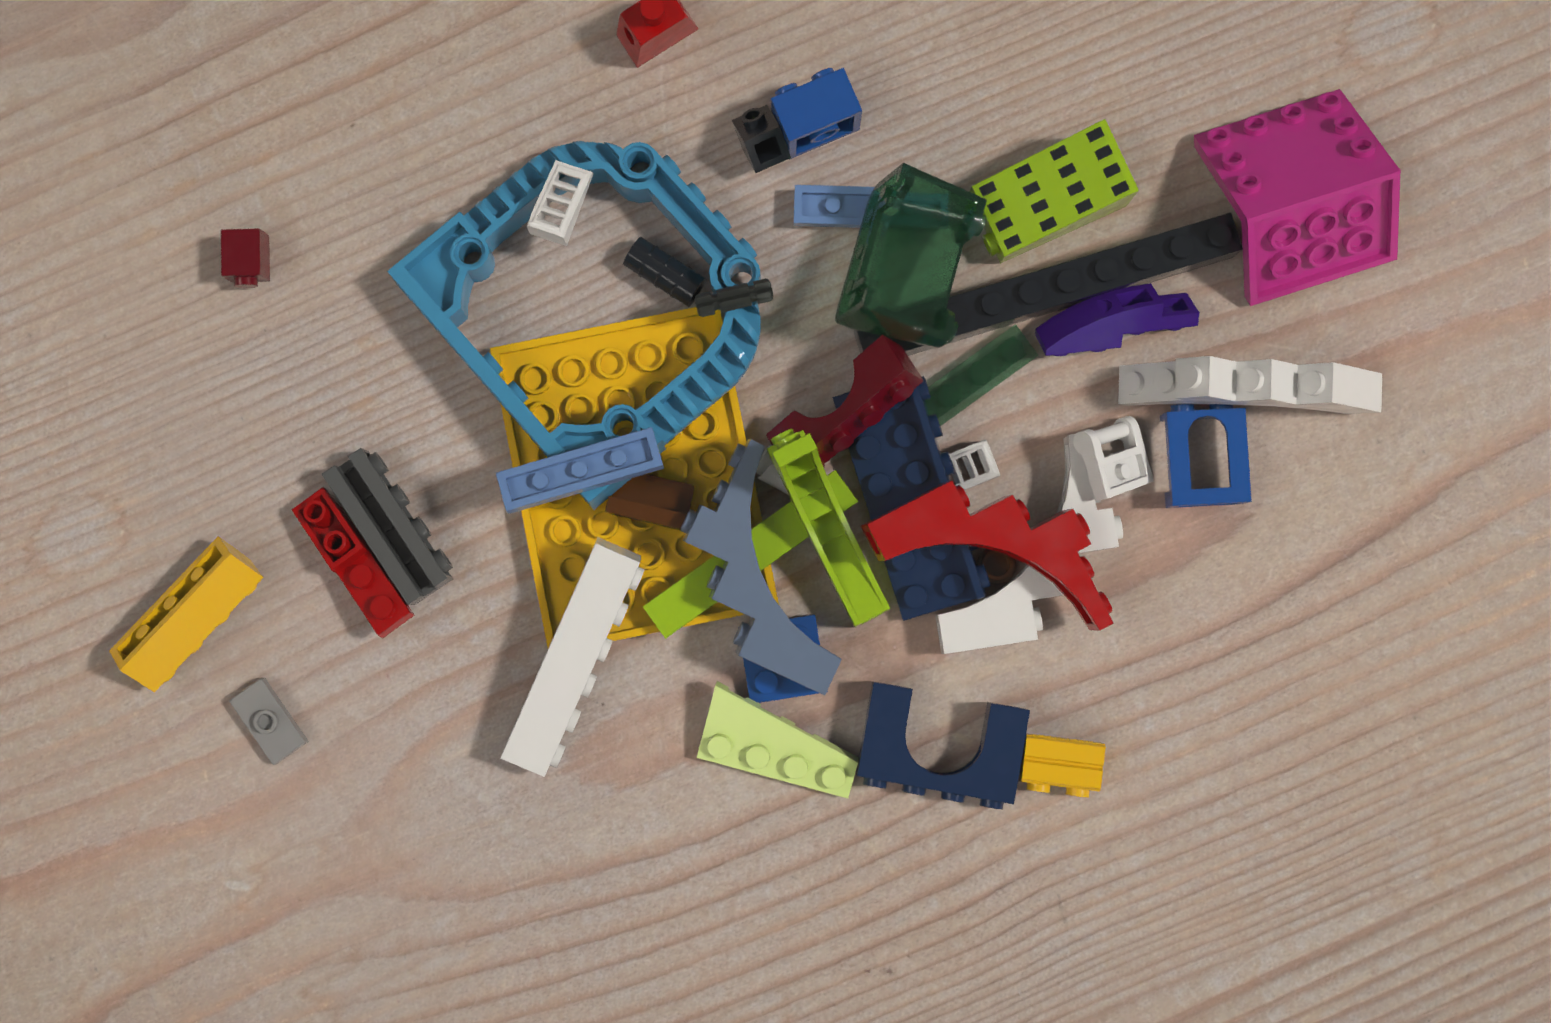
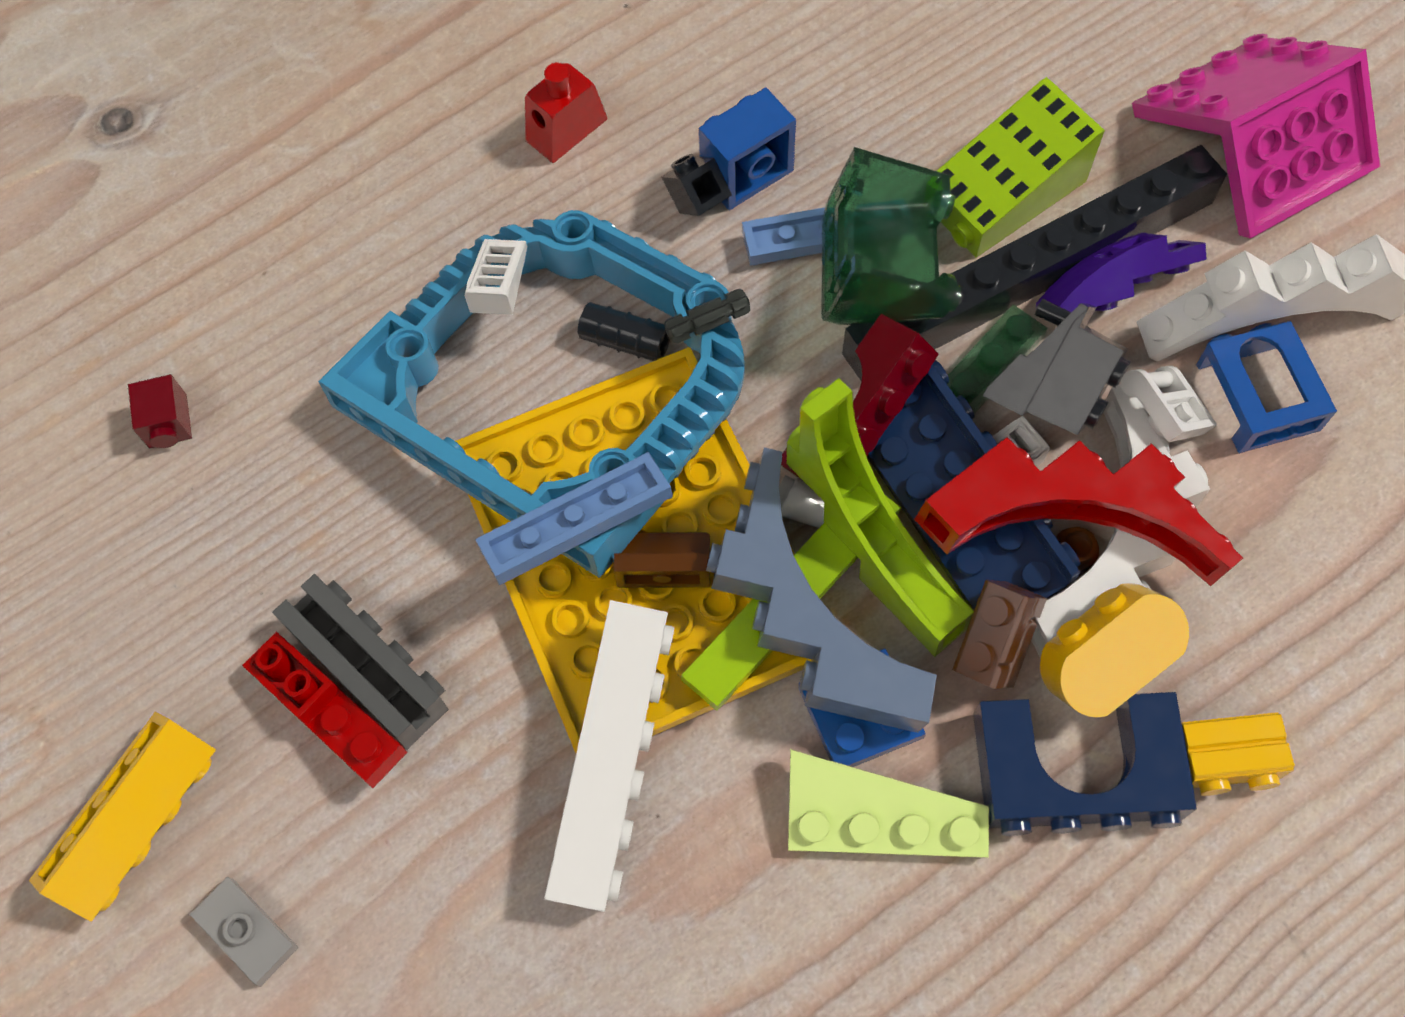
camera: 15 degrees left, 20 degrees down
(905, 631) = (999, 634): none -> reddish brown brick
(990, 667) = (1114, 649): none -> yellow brick
(1024, 422) = (1065, 373): none -> piece

